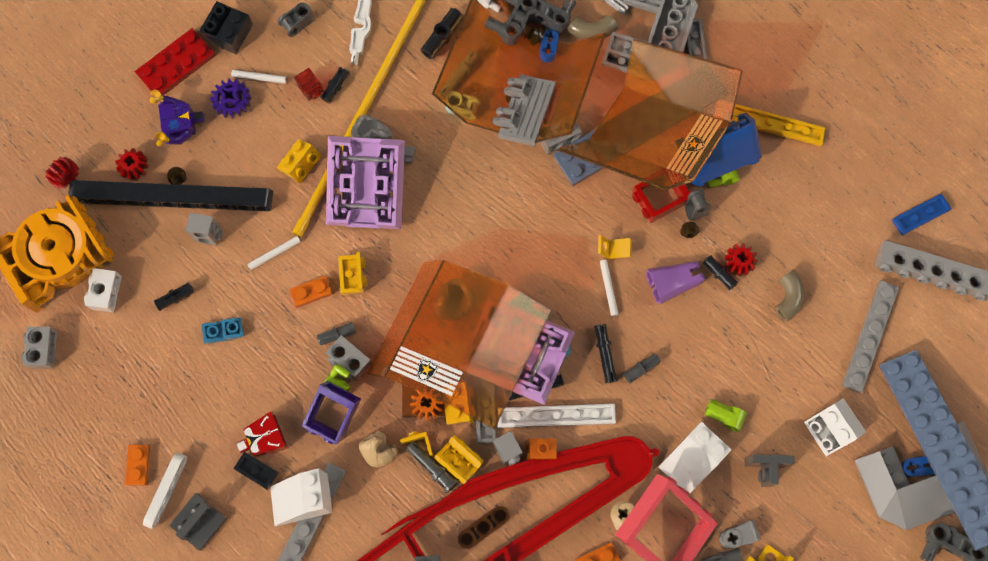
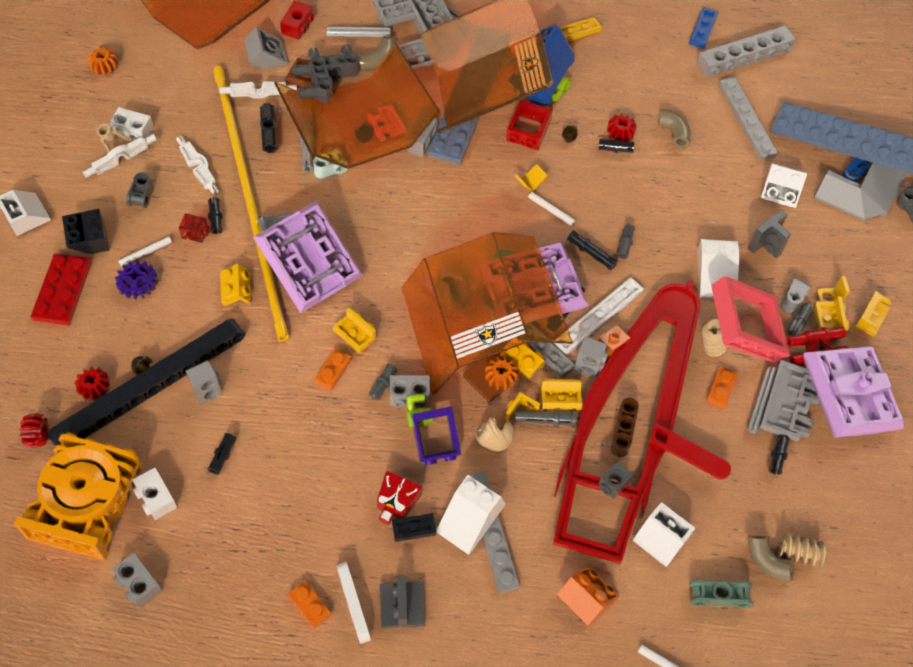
camera: 45 degrees left, 15 degrees down
(176, 119) = (101, 324): dark purple torso -> none
(222, 331) = (287, 450): dark azure slope -> none
(273, 253) = (276, 364): white bar -> none
(527, 112) = (384, 130): light grey hinge -> none
(535, 35) = (342, 84): dark brown plate -> none
(549, 45) = (357, 85): blue beam -> none
(673, 280) = (589, 173): medium lavender piece -> none
(696, 205) = (561, 113): dark grey piece -> none
(730, 416) = (714, 227): lime piece -> none

